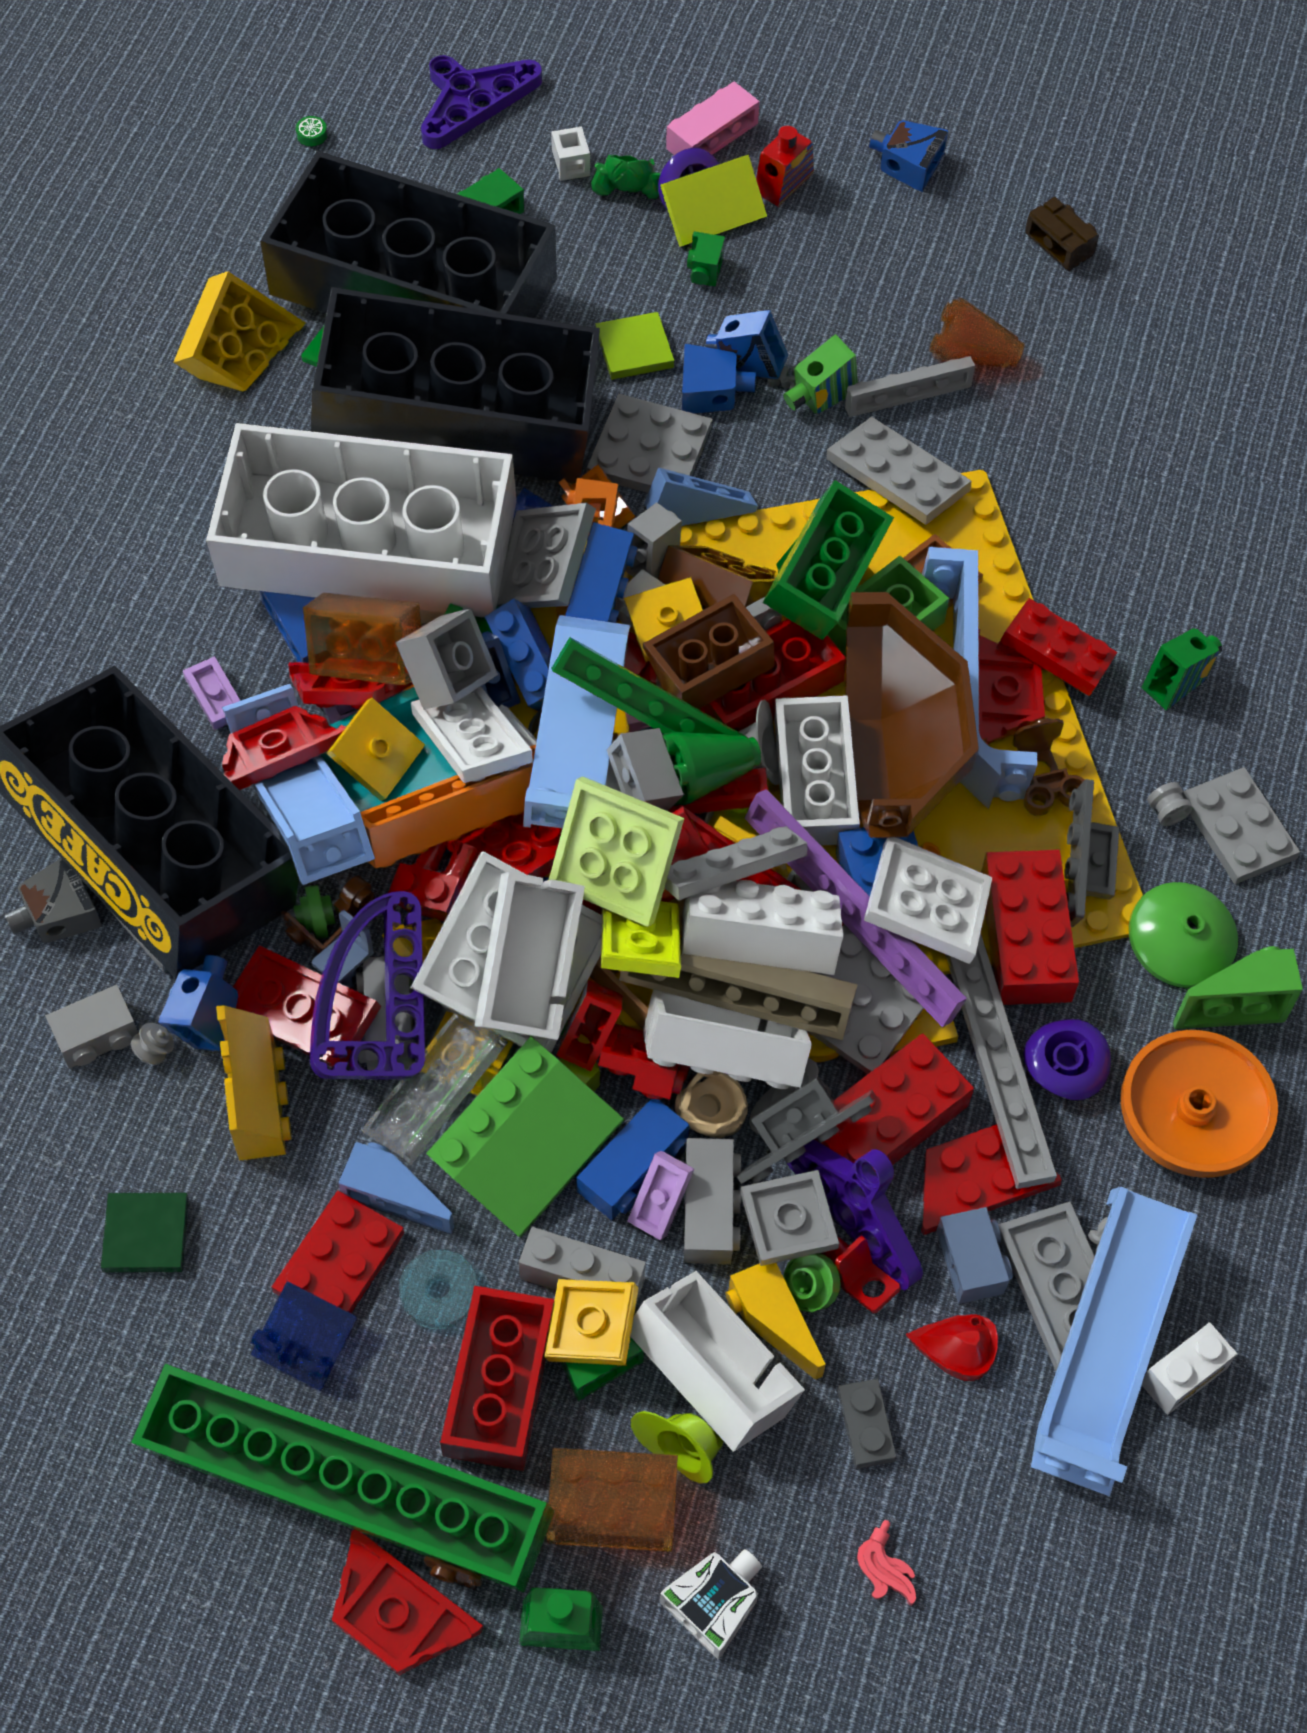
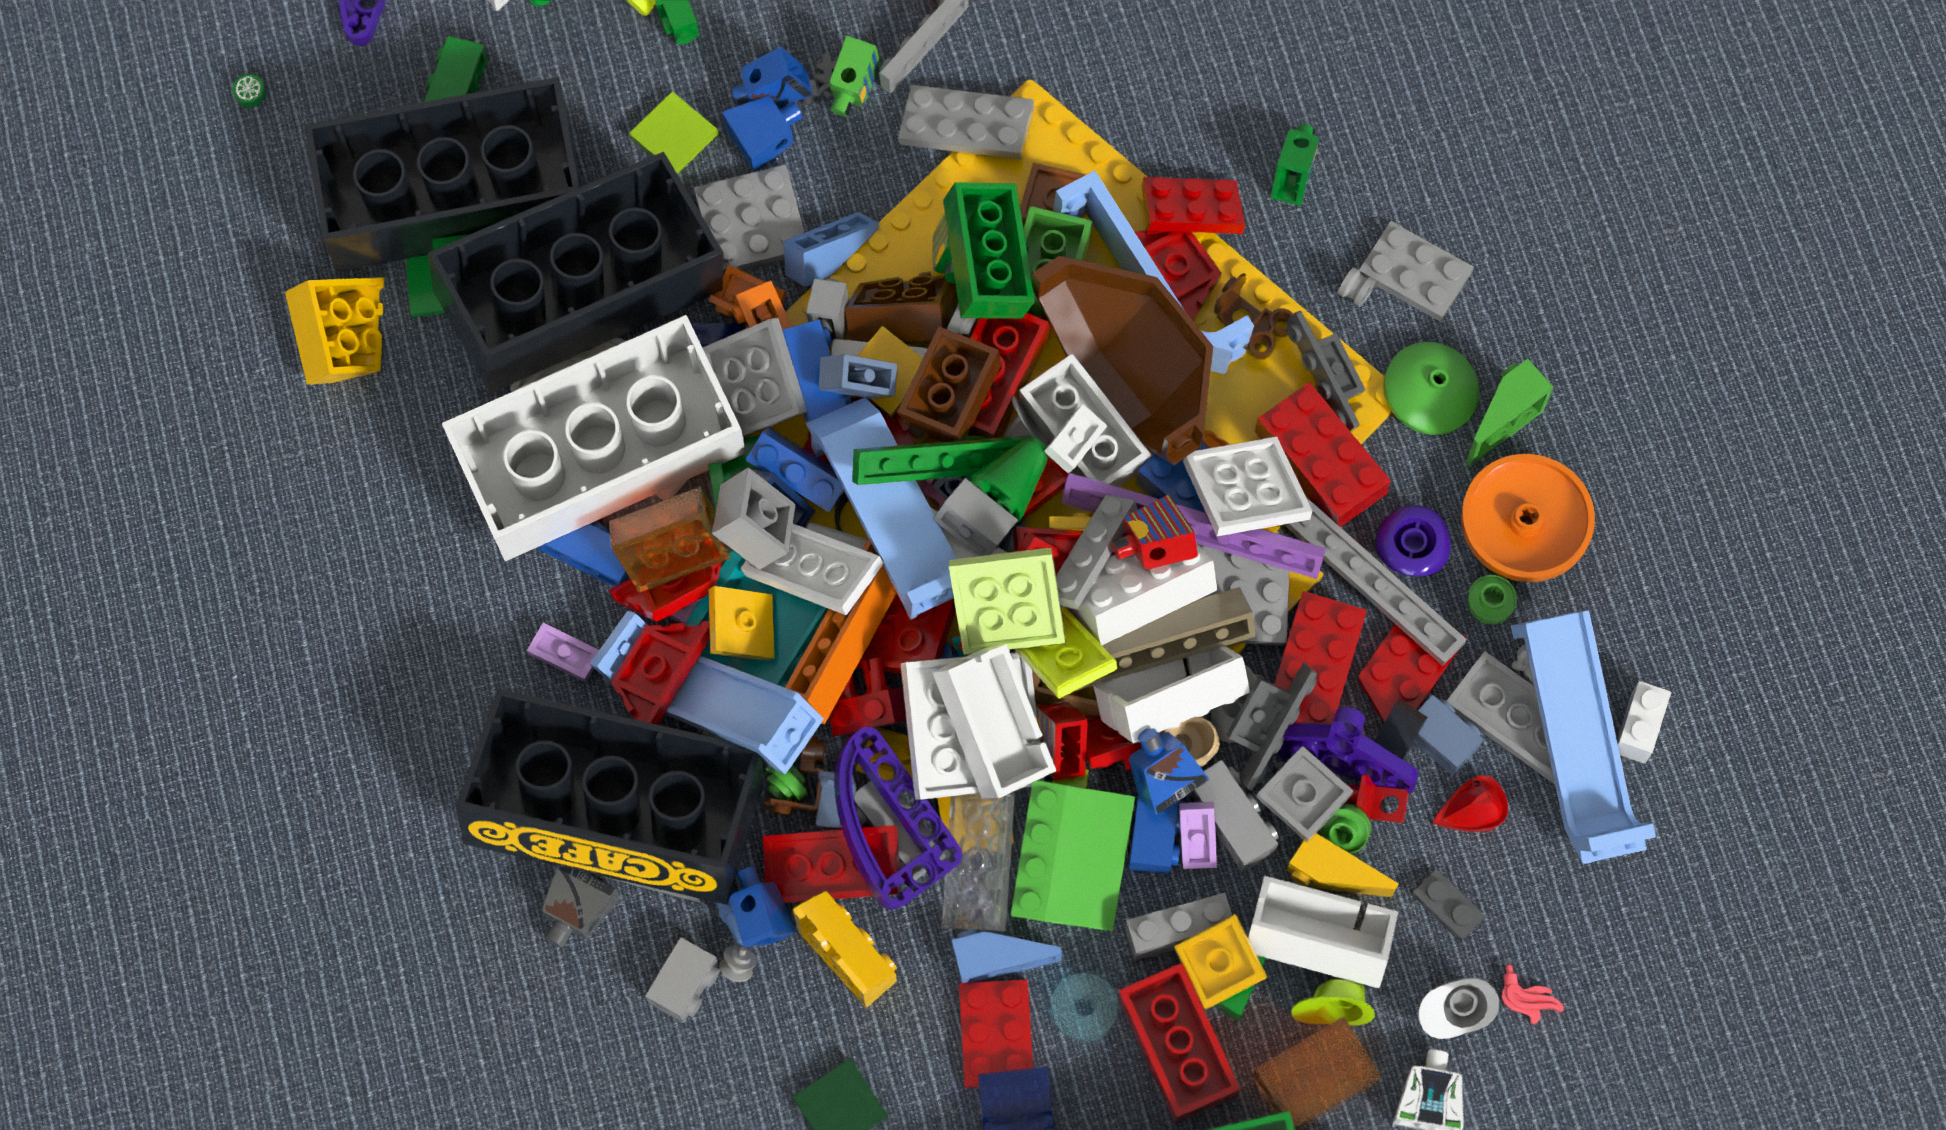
camera: 30 degrees left, 10 degrees up
(631, 596) = (857, 376): none -> sand blue brick
(665, 1106) = (1164, 770): none -> blue torso
(794, 763) = (1075, 438): none -> white plate
(801, 1525) = (1458, 1008): none -> light grey piece
(802, 882) = (1156, 535): none -> red torso
(930, 1219) = (1401, 729): none -> black tile
(1110, 1158) = (1491, 599): none -> bright green plate

